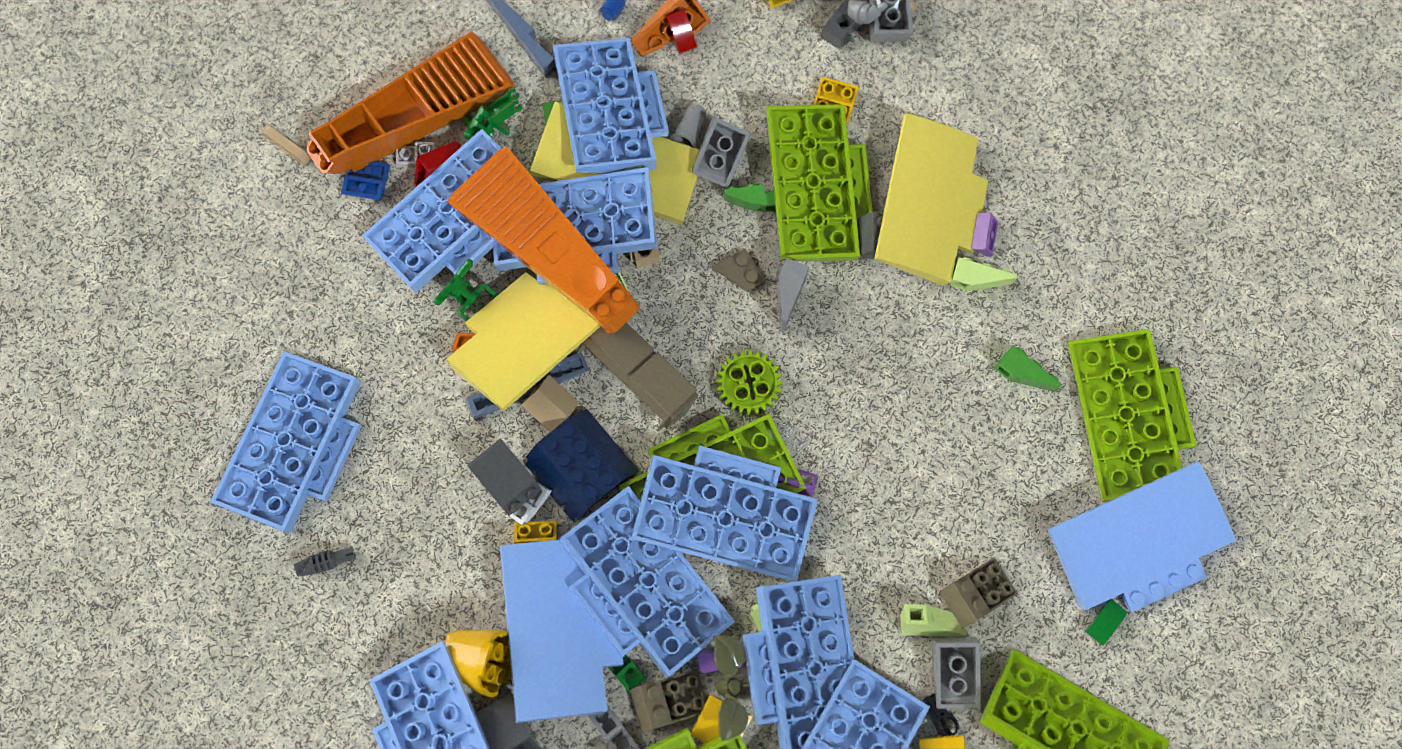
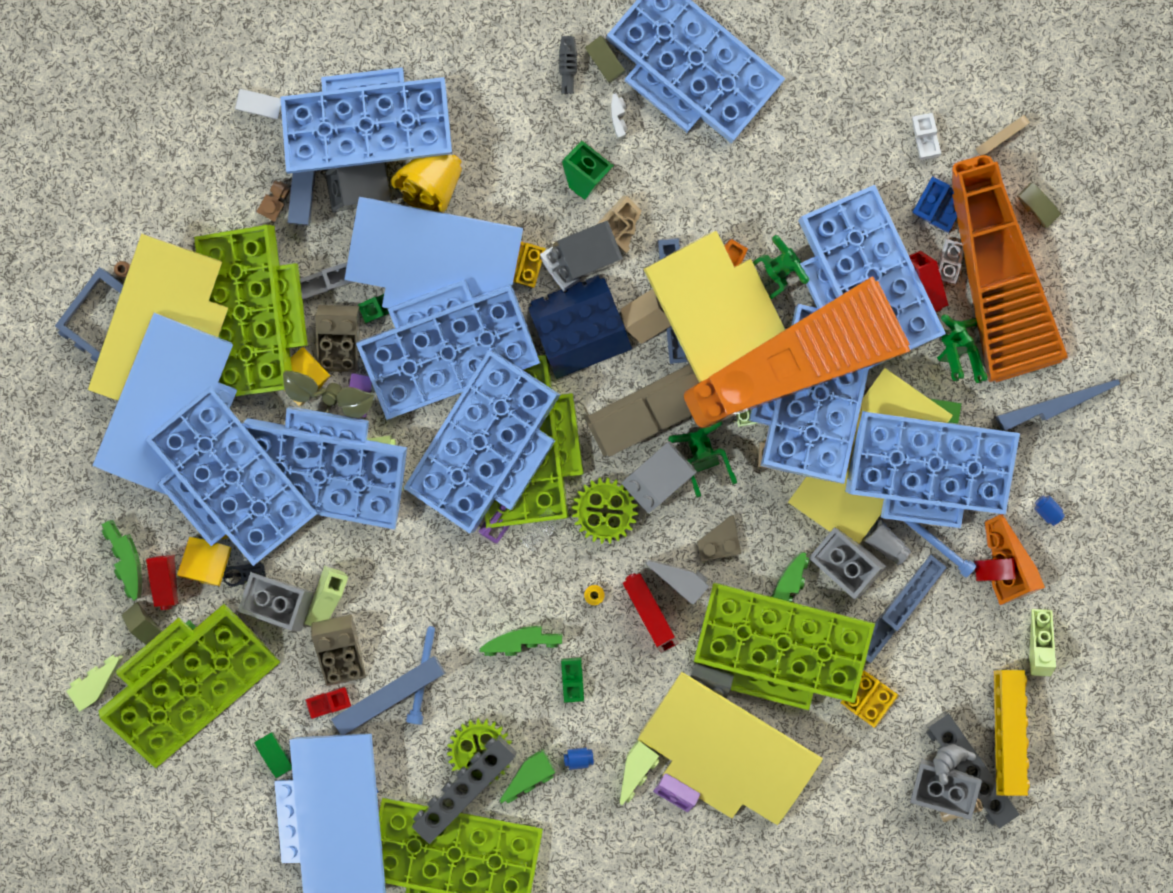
camera: 110 degrees right, 15 degrees up
(301, 213) = (926, 137): none -> white slope
(309, 526) = (605, 59): none -> olive slope
(340, 96) = (1039, 204): none -> olive slope
(356, 498) = (617, 110): none -> white slope
(425, 508) = (585, 169): none -> green slope
(458, 456) = (622, 220): none -> tan slope
(666, 308) = (703, 454): none -> green piece
(688, 57) = (965, 567): none -> medium blue piece
(700, 339) = (658, 477): none -> light grey slope
(733, 95) = (904, 605): none -> sand blue slope
(829, 309) = (650, 612): none -> red slope
(830, 372) = (589, 590): none -> yellow plate
(904, 427) = (512, 641): none -> bright green slope
(919, 361) = (572, 680): none -> green slope
(989, 330) = (578, 758): none -> blue brick
(1003, 527) = (388, 695): none -> sand blue slope
(1008, 408) = (461, 756): none -> lime gear
(1012, 496) = (415, 715): none -> medium blue piece
(1032, 585) = (328, 702): none -> red slope
(1113, 439) = (431, 829): none -> dark grey brick

